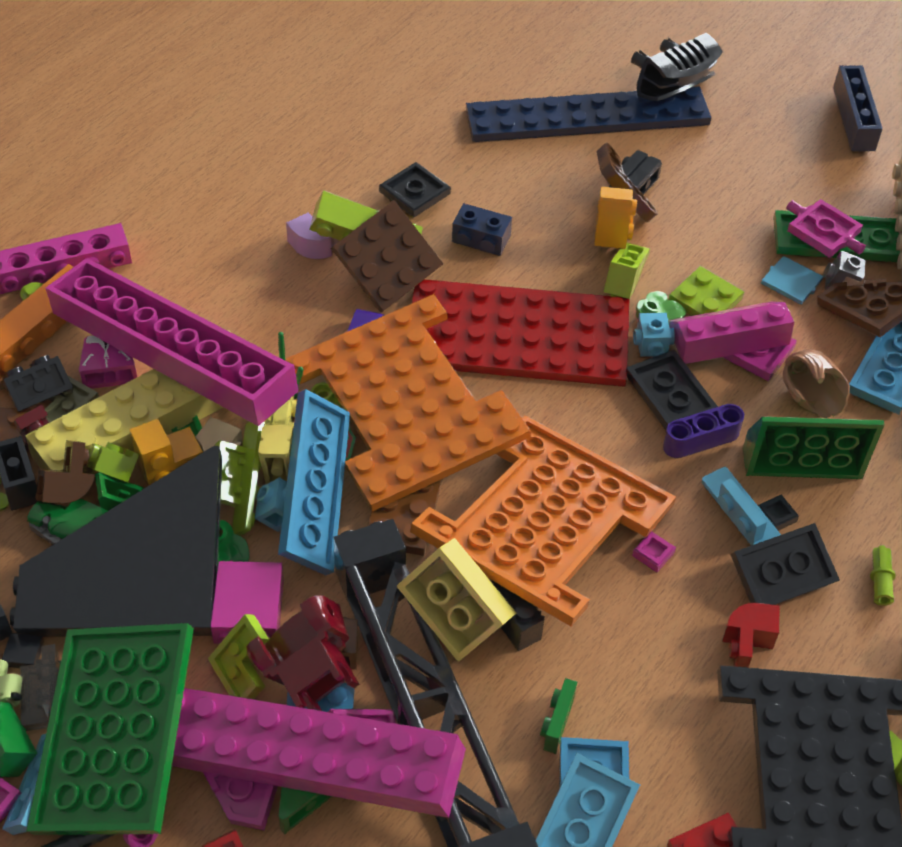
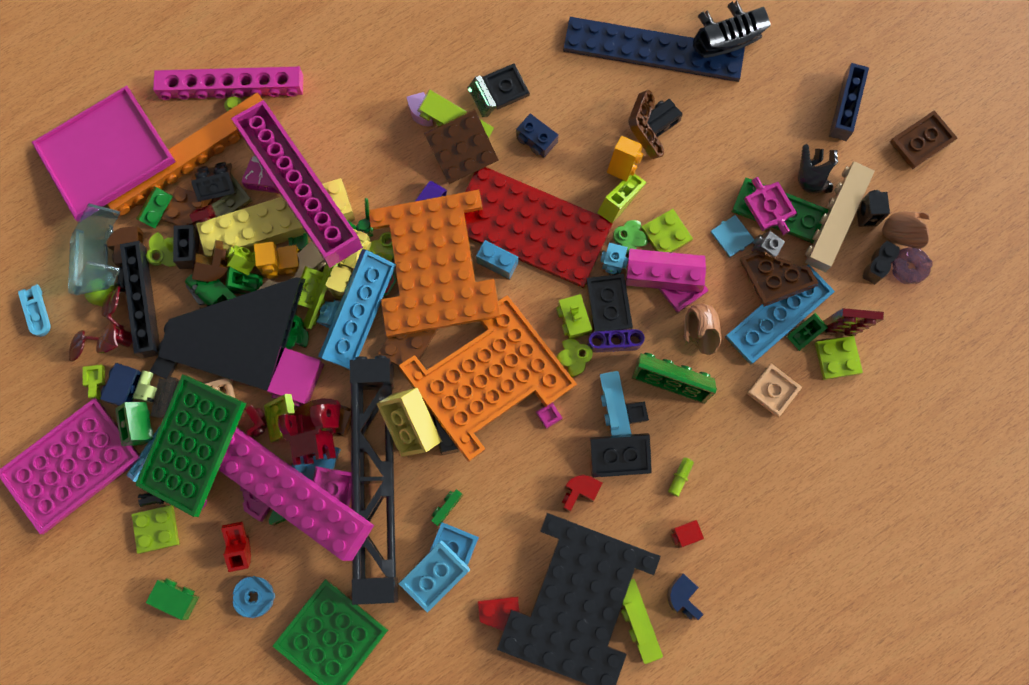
camera: 20 degrees right, 25 degrees up
(204, 675) = (257, 416): none -> dark red bracket
(380, 196) = (481, 96): none -> plate
(490, 373) = (497, 259): none -> dark azure piece
(632, 418) = (574, 317): none -> lime brick
(653, 469) = (571, 356): none -> lime plate
(859, 186) = (814, 178): none -> black piece

